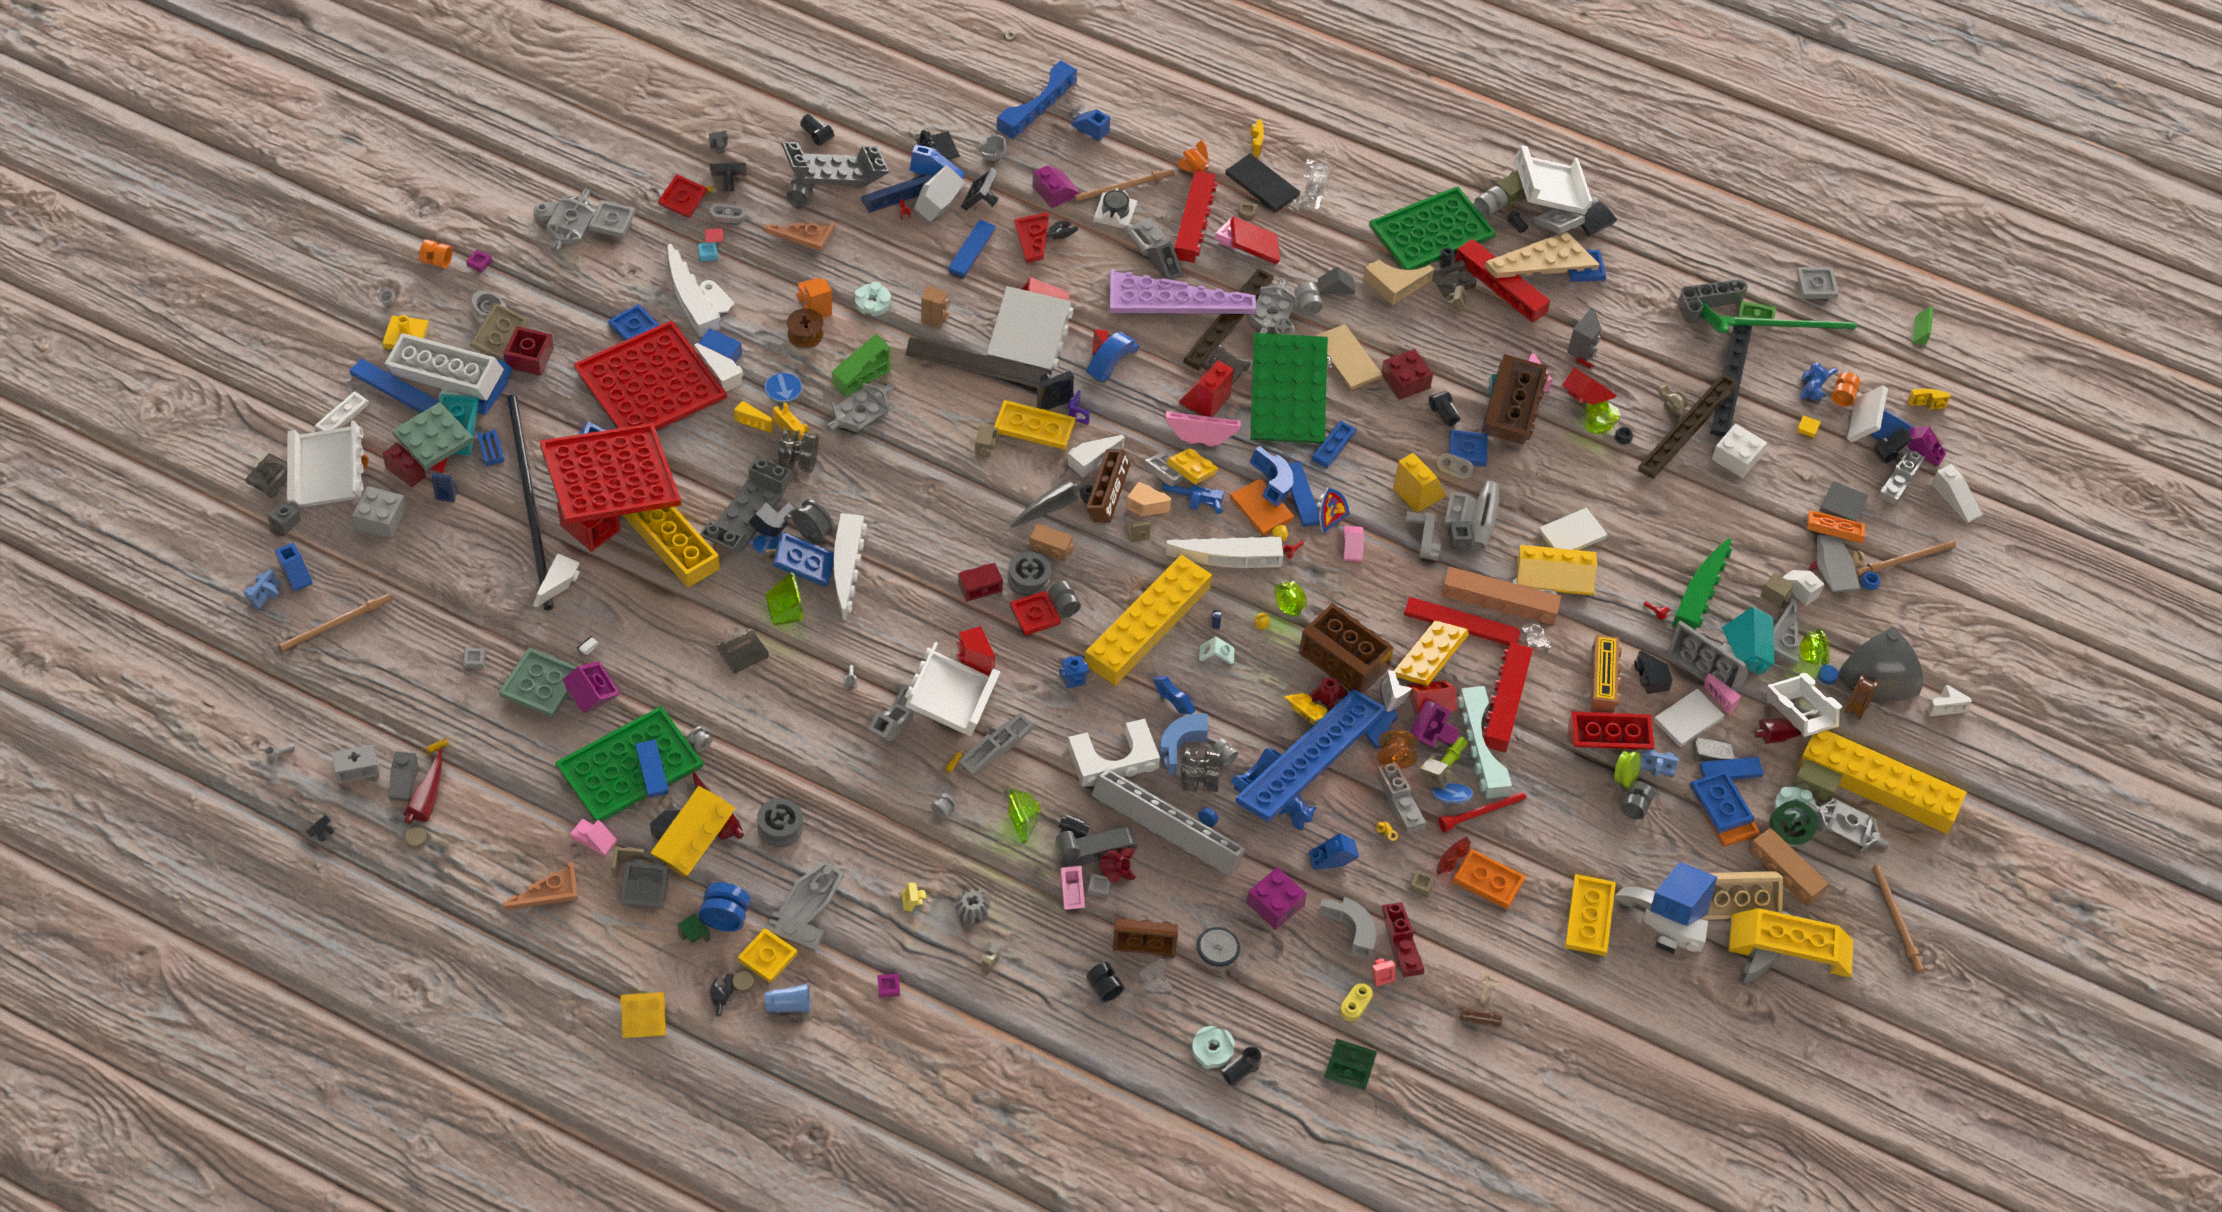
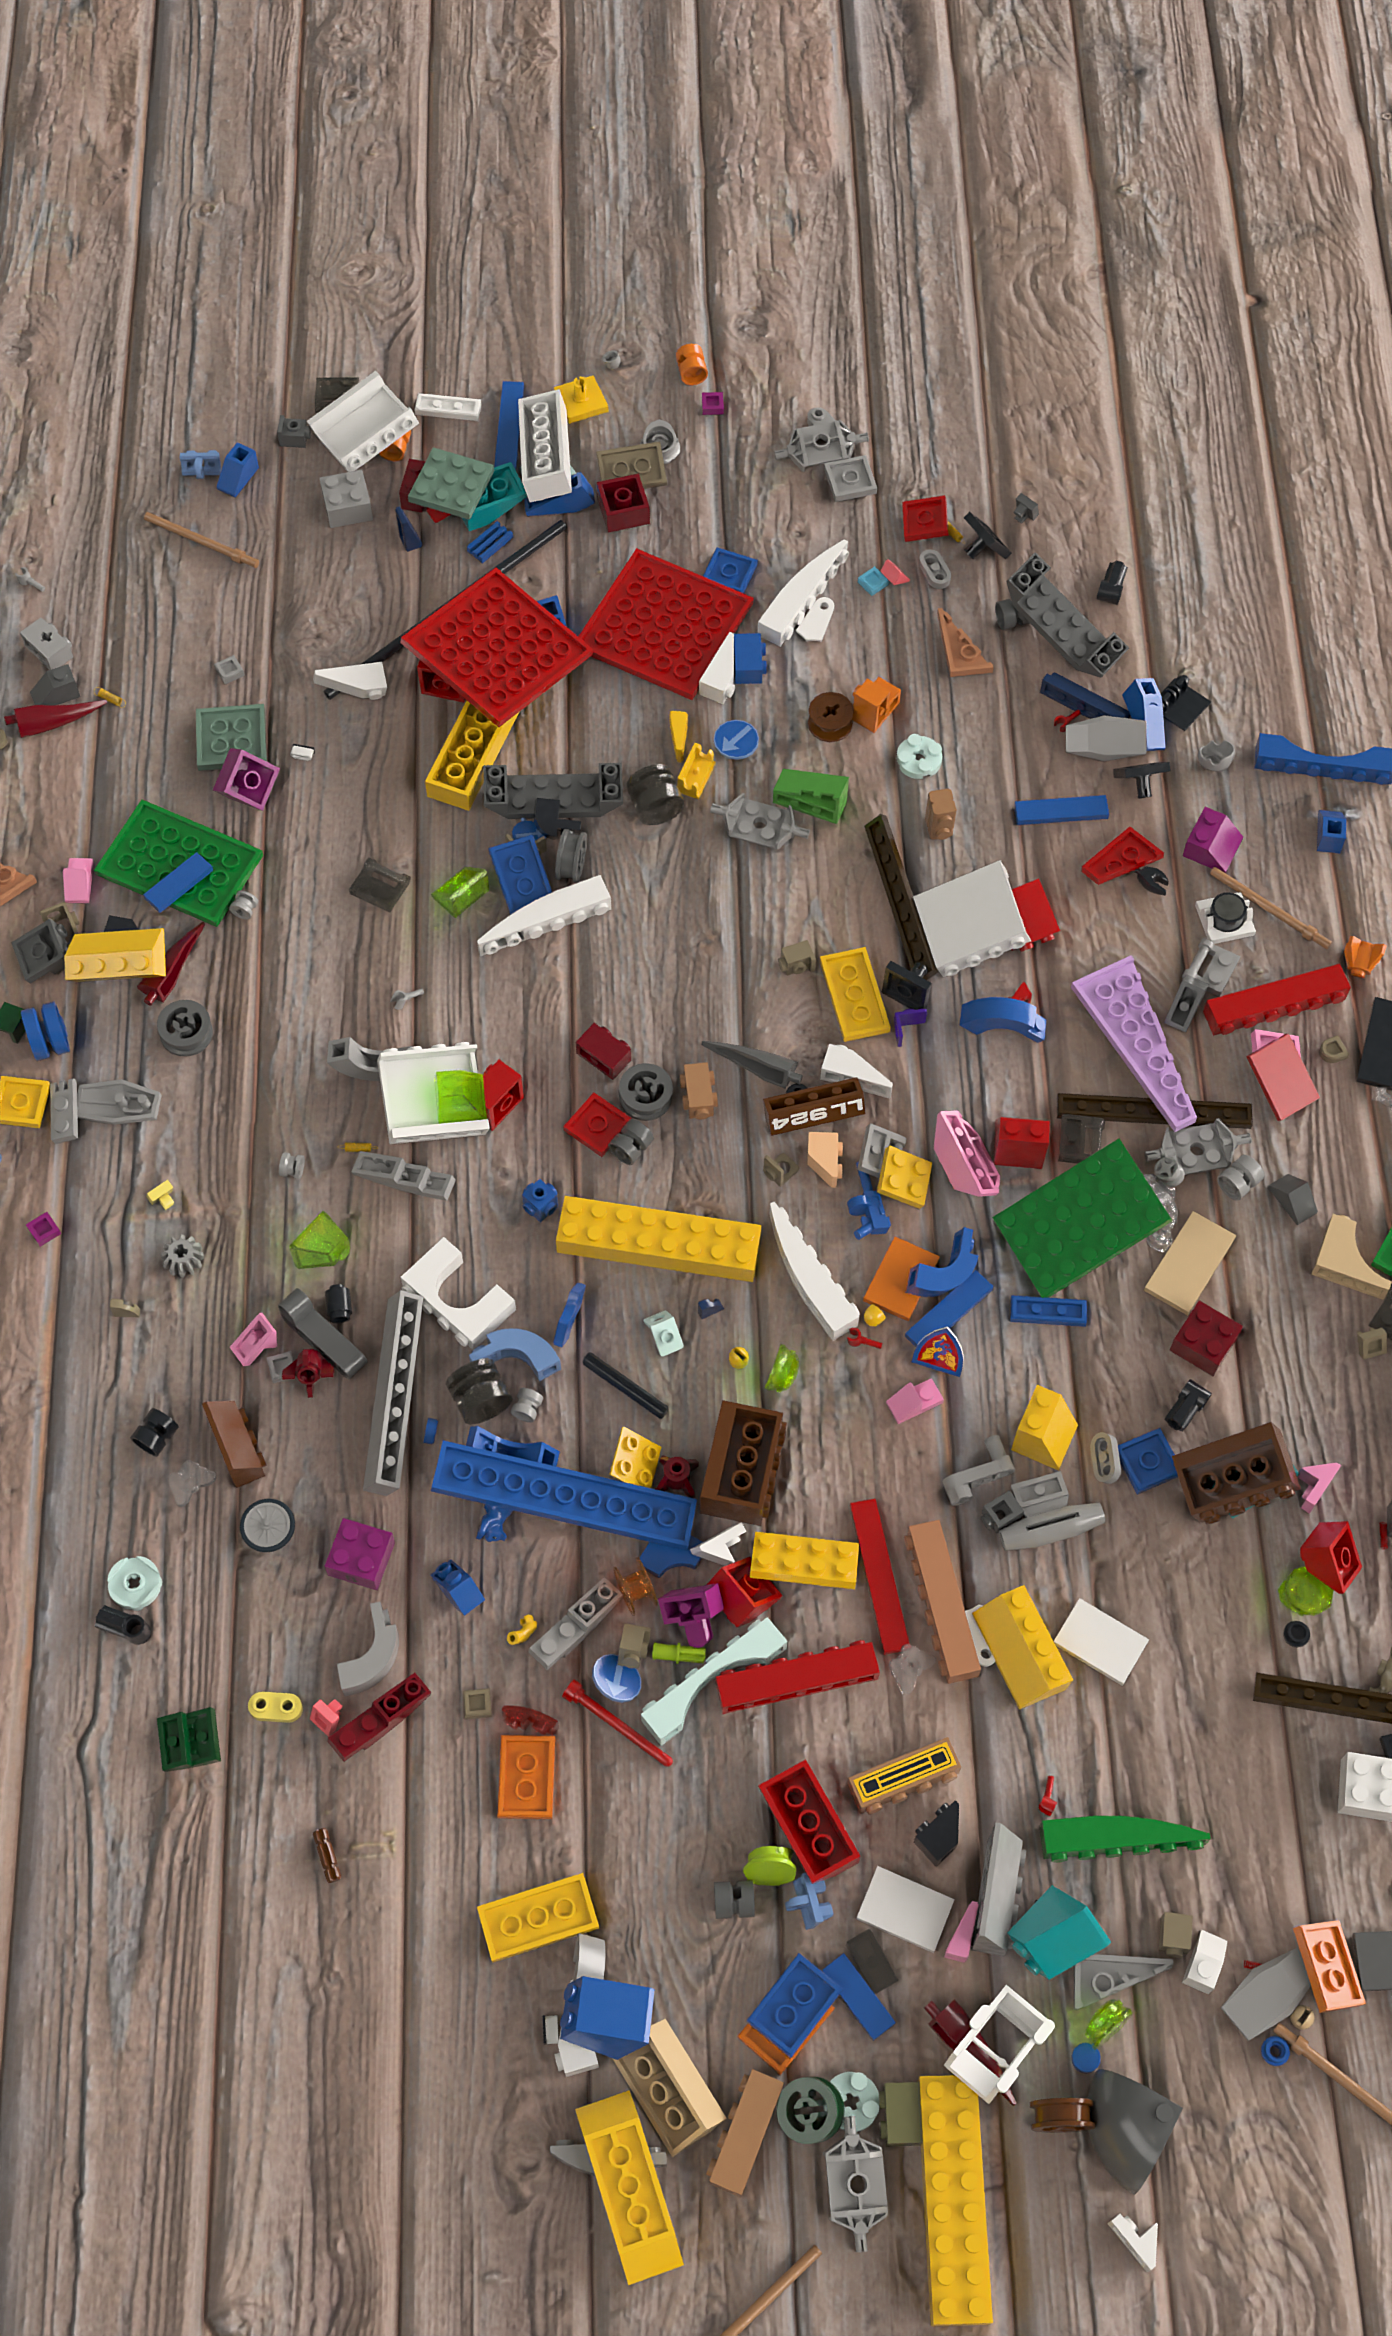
camera: 65 degrees right, 10 degrees up
(965, 678) = (459, 1096): none -> clear neon green slope
(1242, 692) = (625, 1385): none -> black axle

